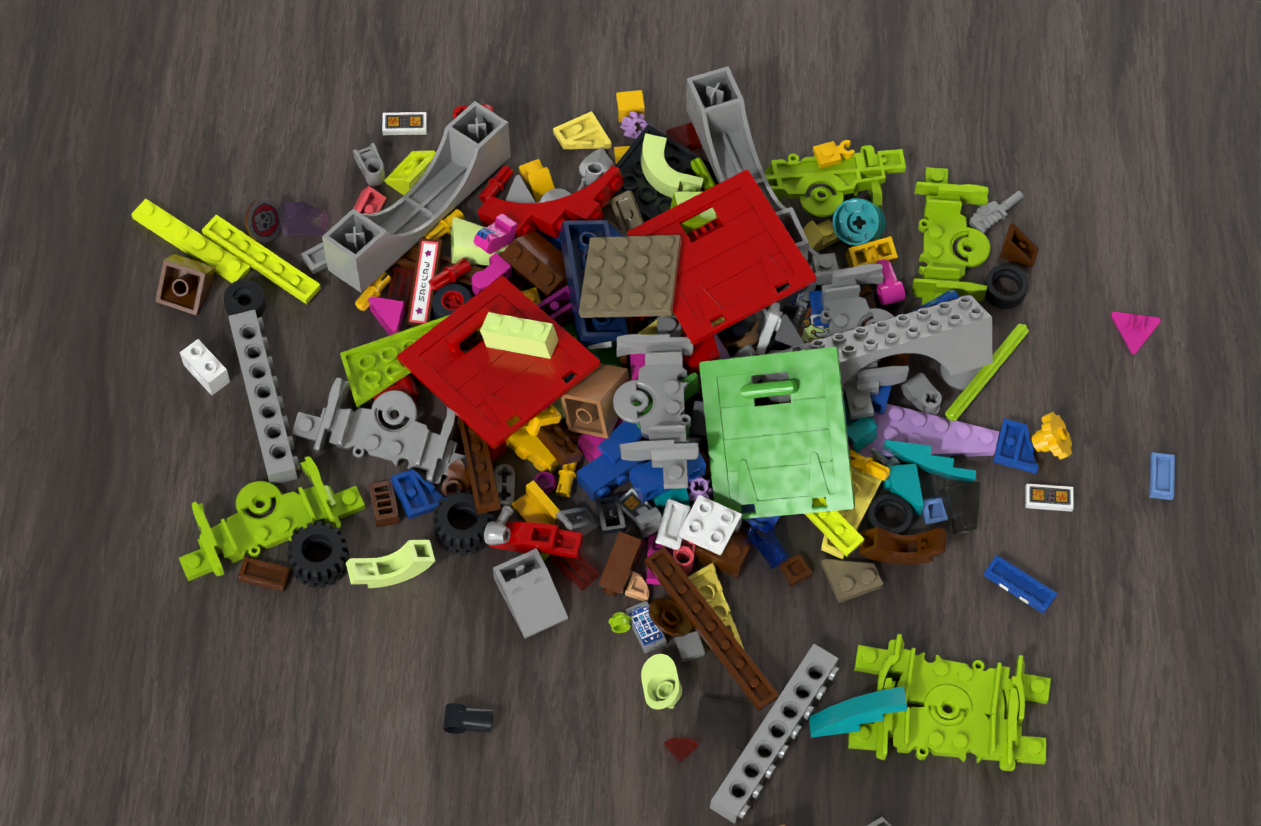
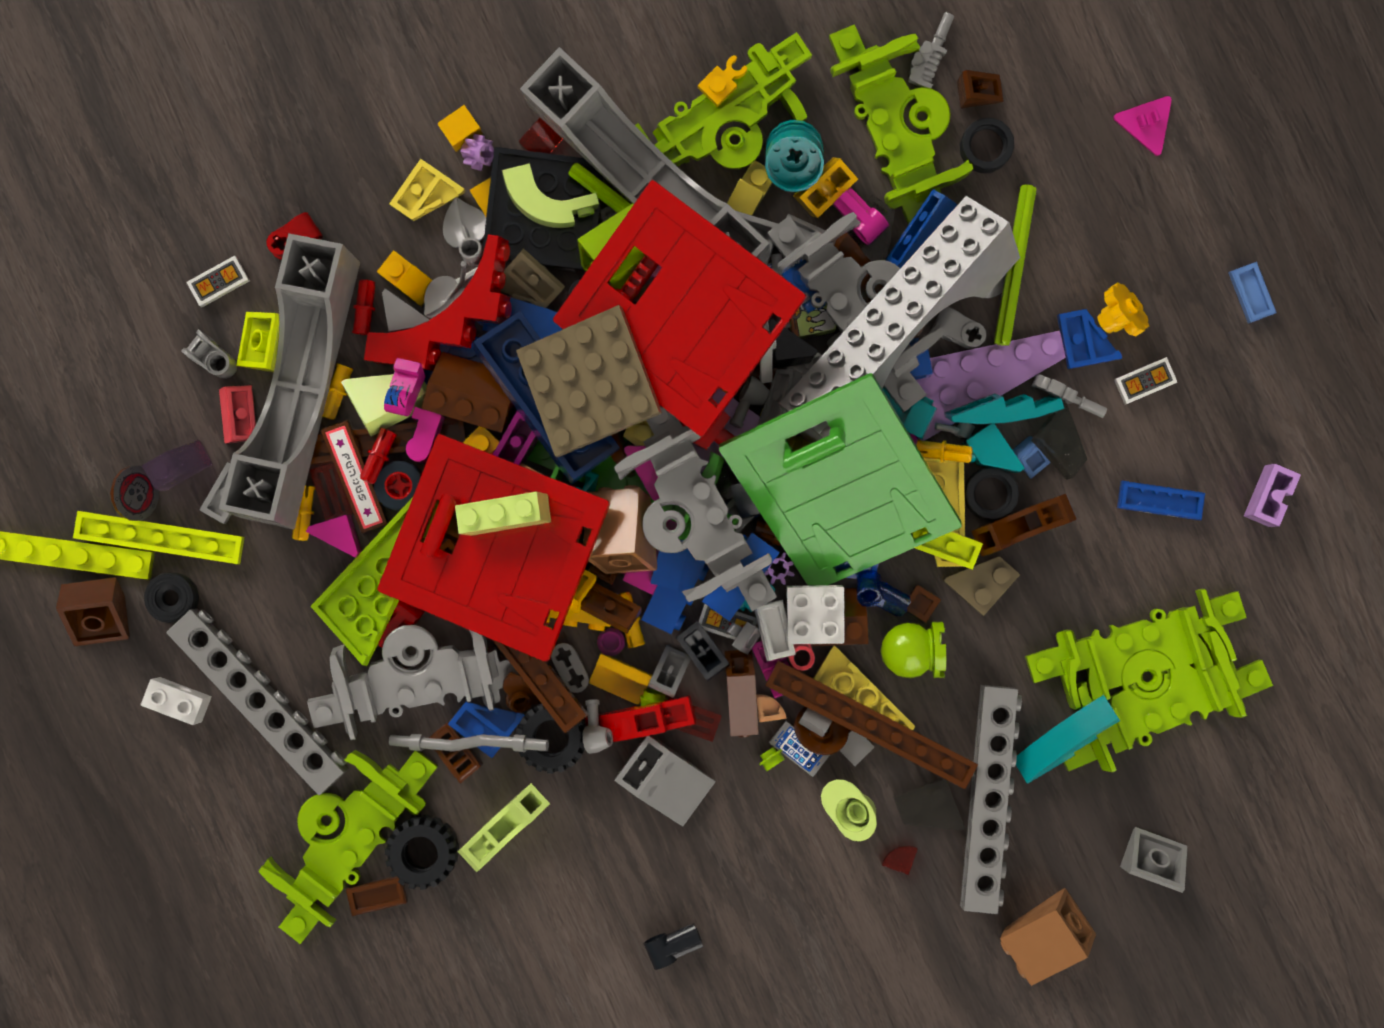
camera: 25 degrees left, 25 degrees up
(437, 503) = (518, 743): none -> light grey bar
(669, 608) = (815, 722): none -> light grey tile
(772, 592) = (913, 650): none -> lime tile
(984, 475) = (1069, 395): none -> light grey piece
(1111, 614) = (1267, 498): none -> lavender brick

